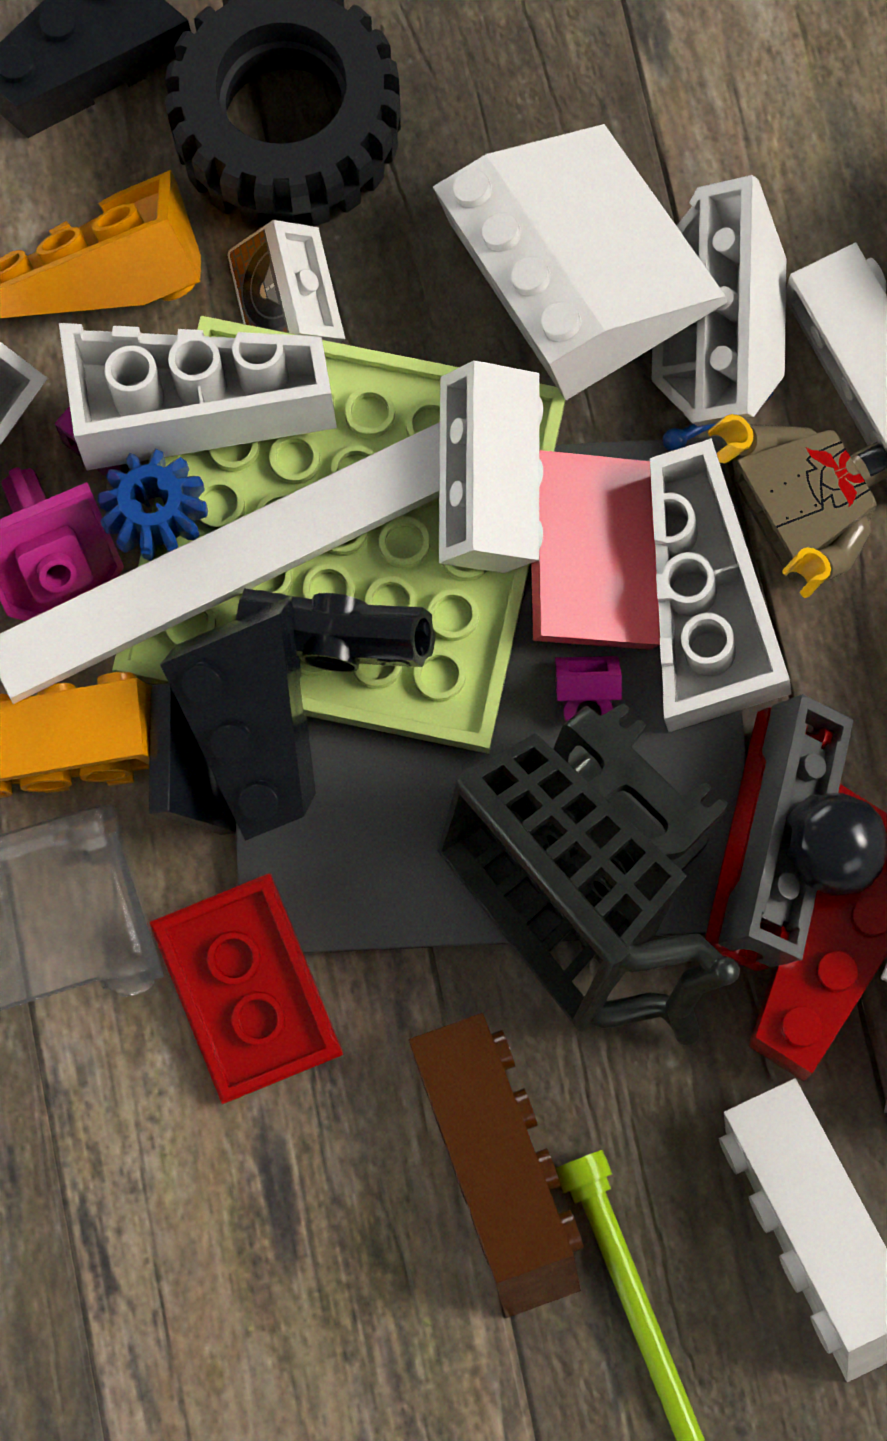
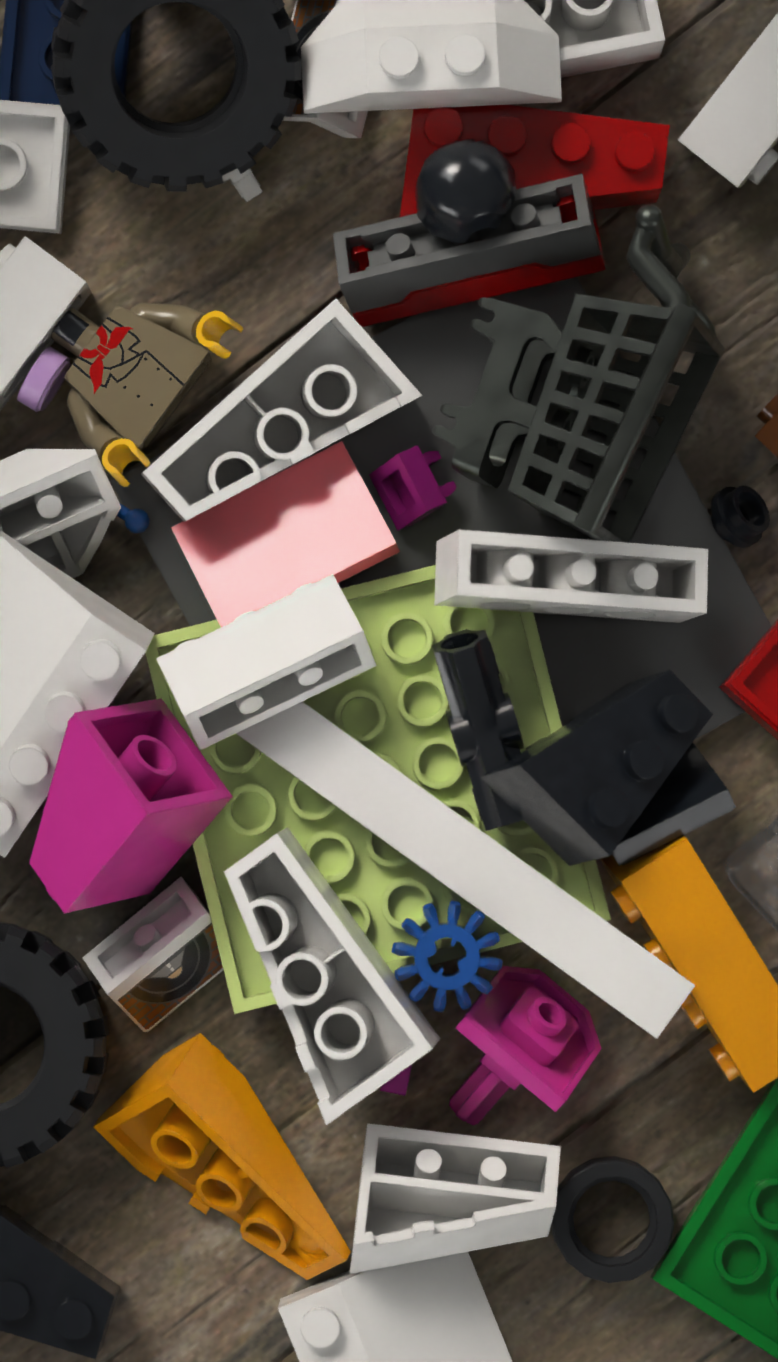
camera: 120 degrees left, 10 degrees up
(418, 971) = (739, 515): none -> black plate
(426, 774) = (570, 576): none -> white brick
(427, 292) = (122, 805): none -> dark pink slope
(838, 413) = (44, 379): none -> lavender tile

